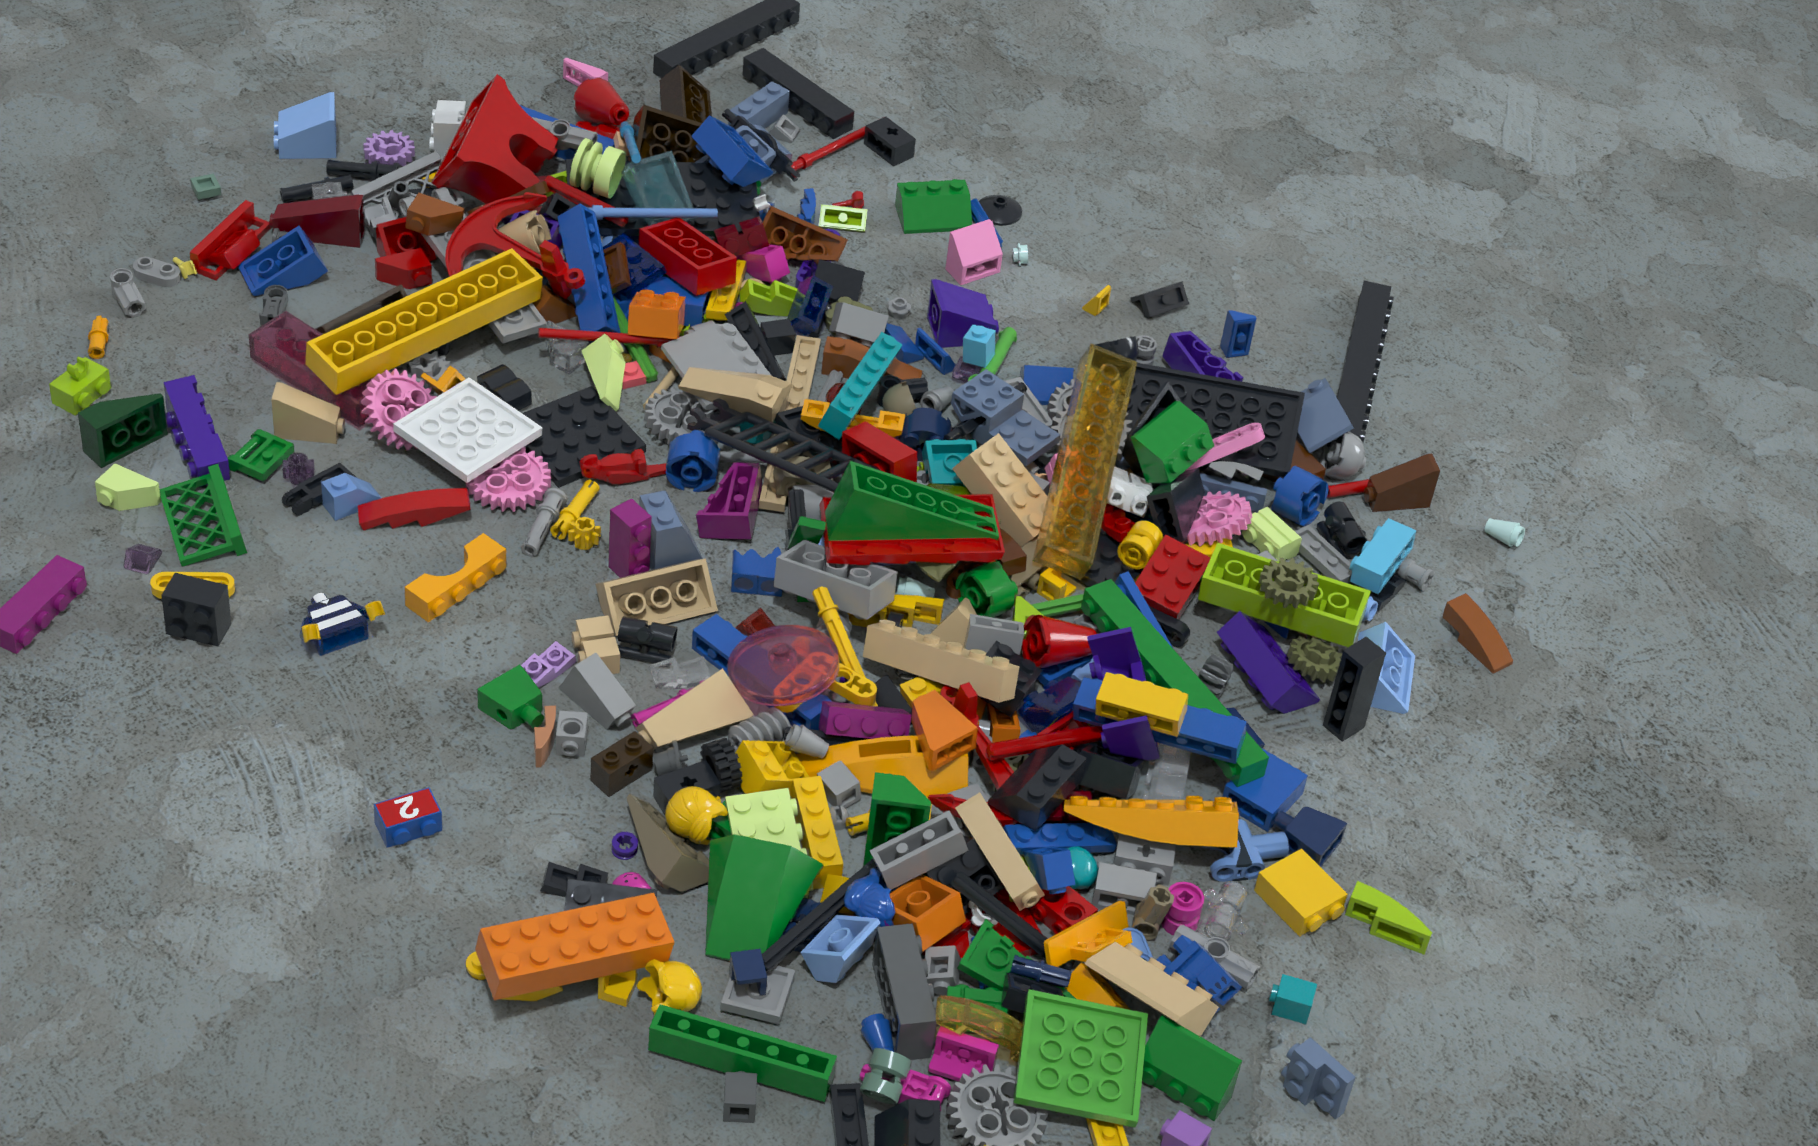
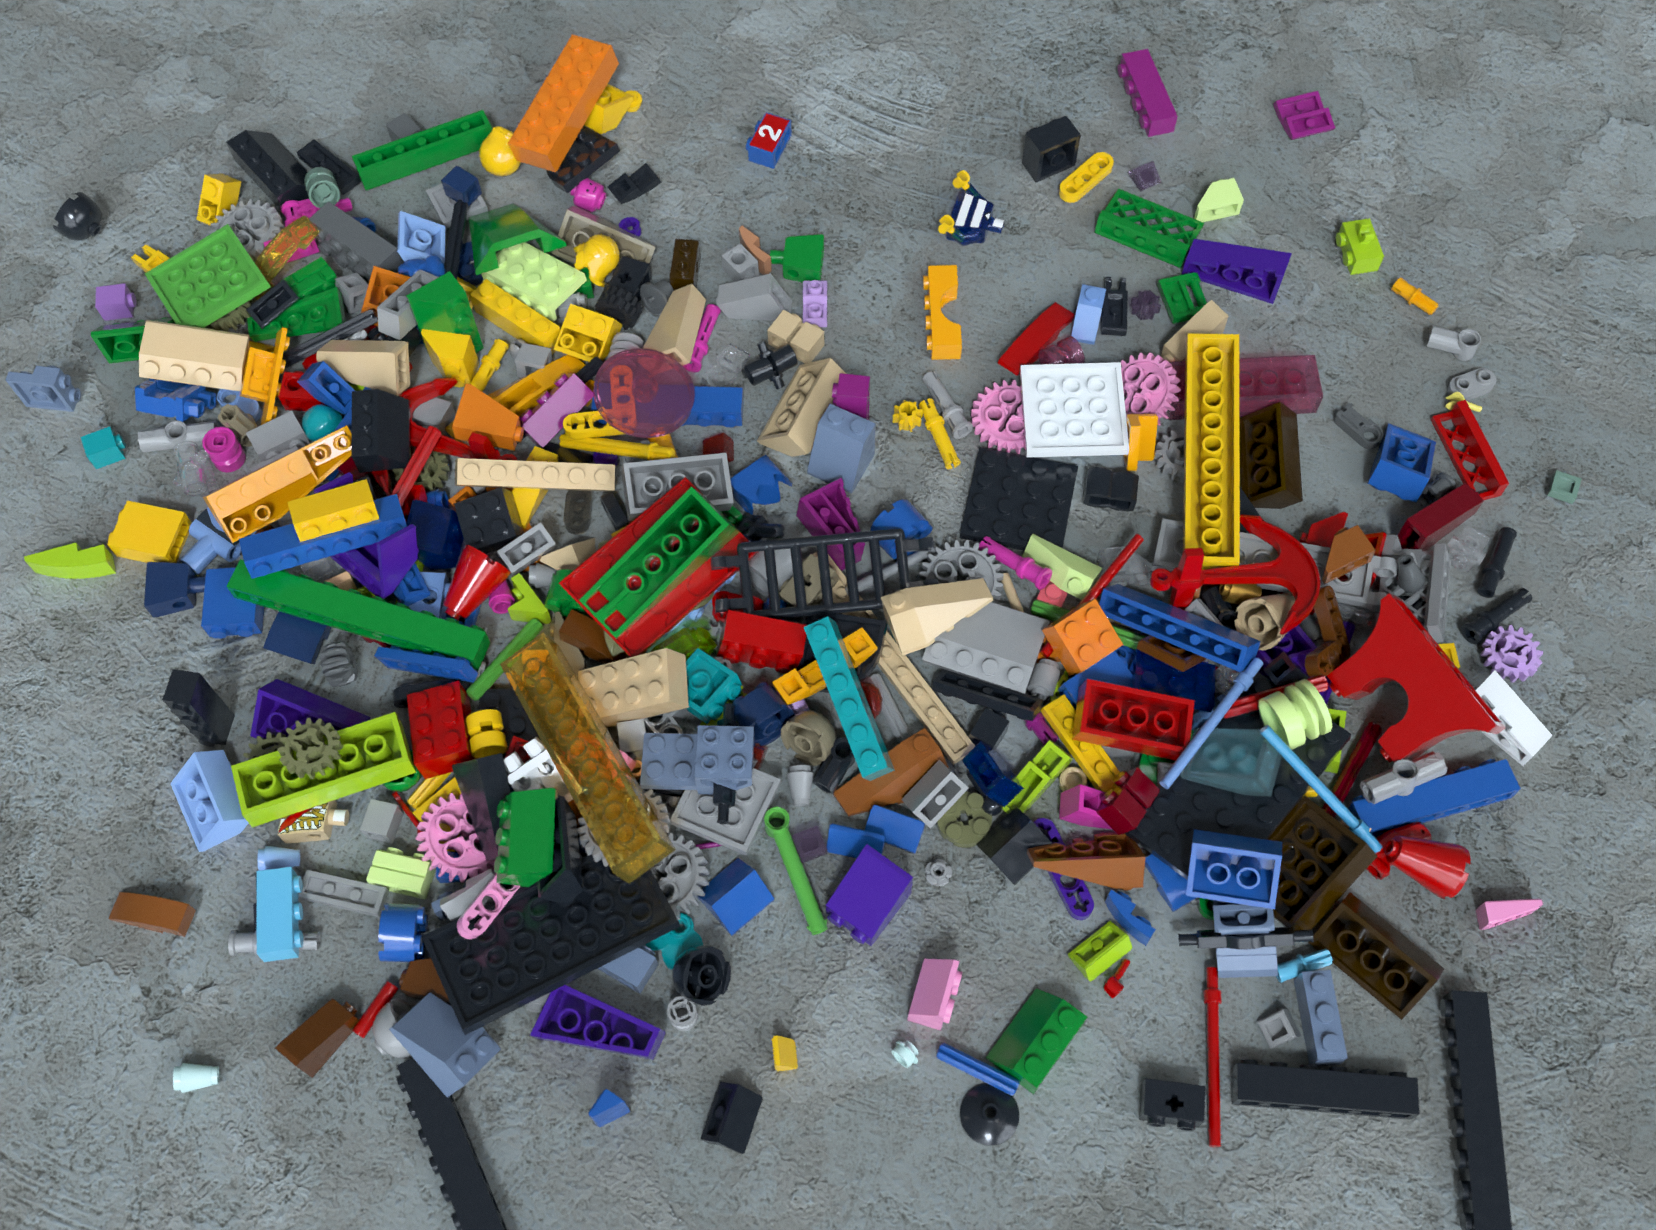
camera: 145 degrees right, 20 degrees up
(121, 427) = (1282, 216): dark green slope -> none
(235, 249) = (1454, 445): red slope -> none
(307, 129) = (1585, 609): light blue slope -> none
(411, 478) = (1065, 352): none -> clear pink wheel
(620, 467) = (950, 491): red animal -> none
(632, 389) = (1024, 567): none -> dark pink pin
(761, 203) = (1152, 851): white hand -> none
(805, 741) = (576, 356): light grey cone -> none
(808, 530) = (734, 505): green tile -> none
(979, 346) = (811, 854): medium azure brick -> none
(1040, 971) = (278, 318): dark blue axle -> none
(1343, 529) = (339, 930): black pin -> none

